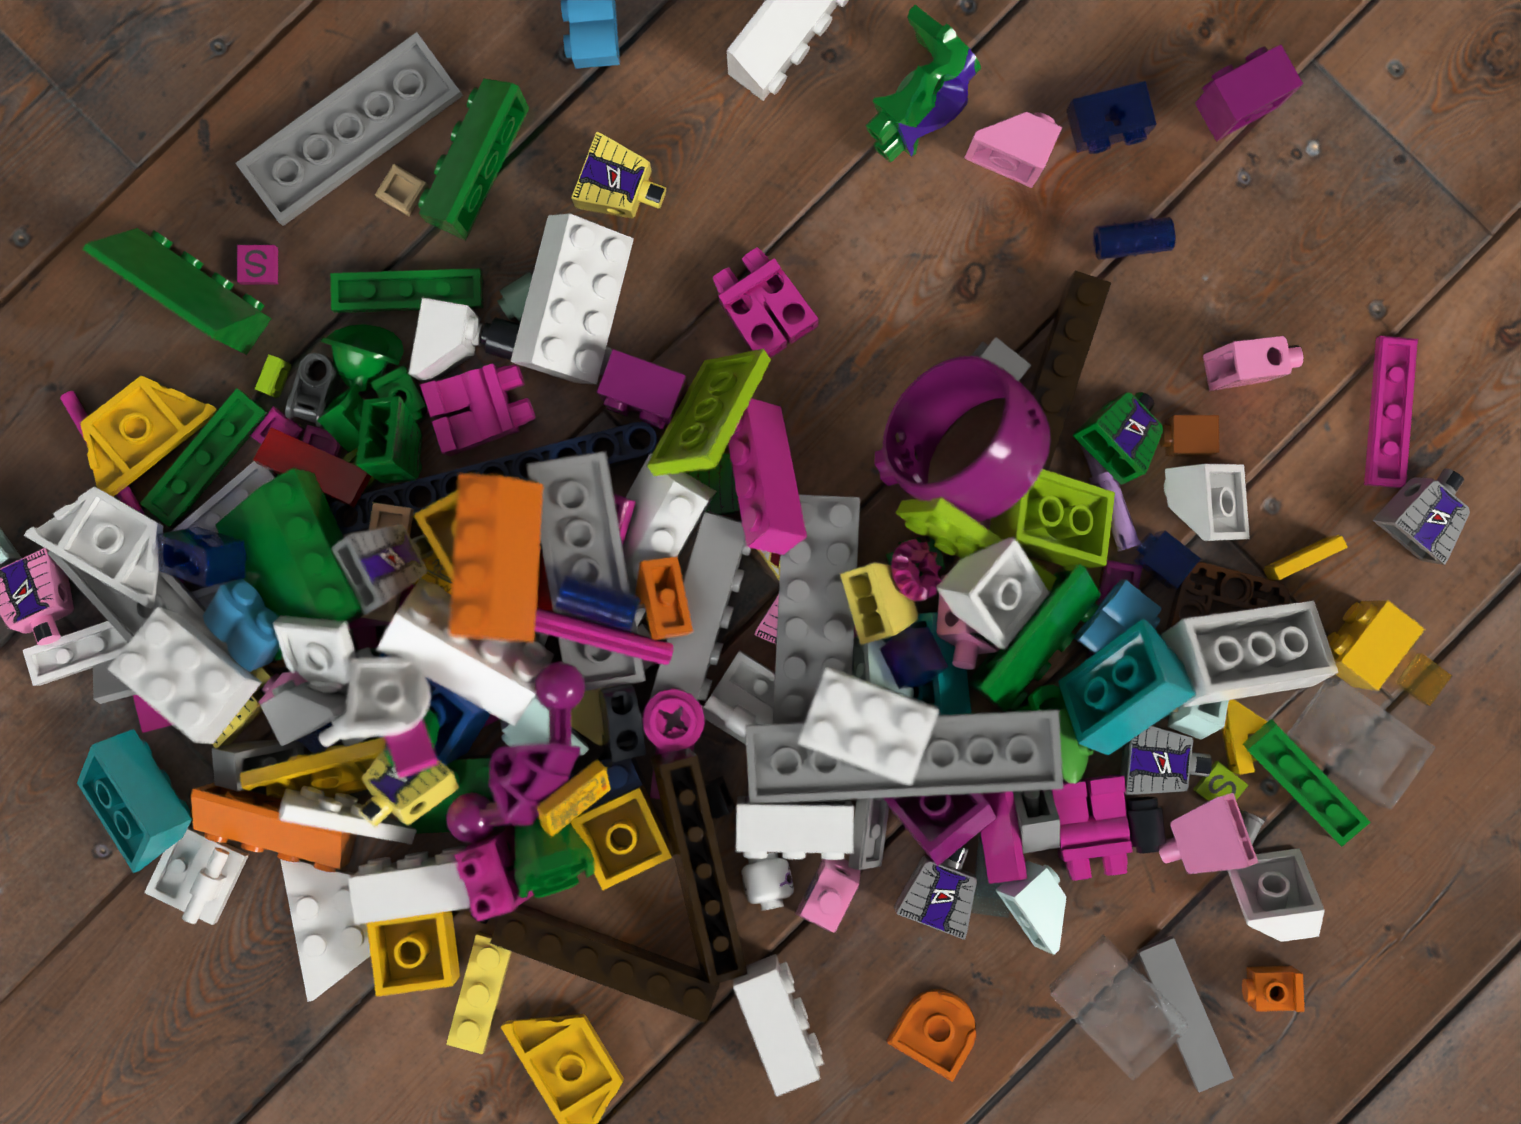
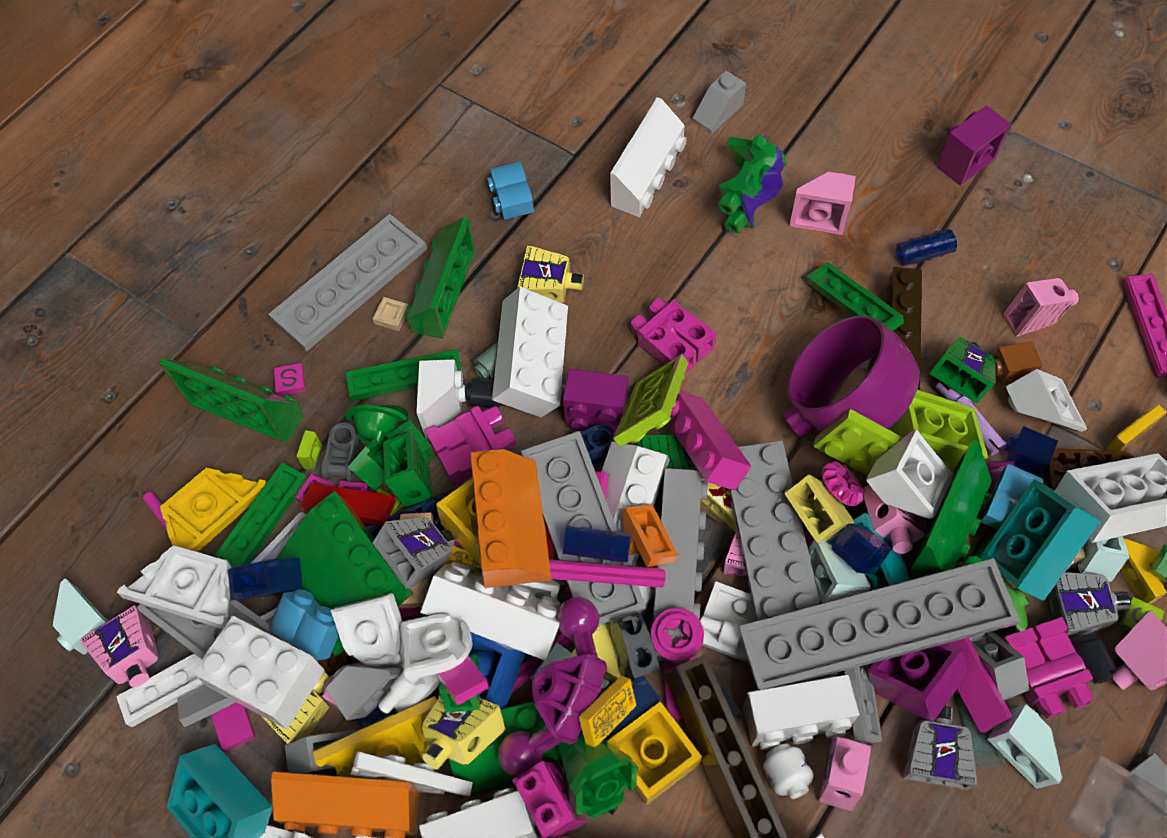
camera: 10 degrees left, 25 degrees down
(868, 725) = (844, 596): white brick -> none
(1010, 307) = (852, 296): none -> green plate
(1126, 104) = (884, 180): clear blue brick -> none

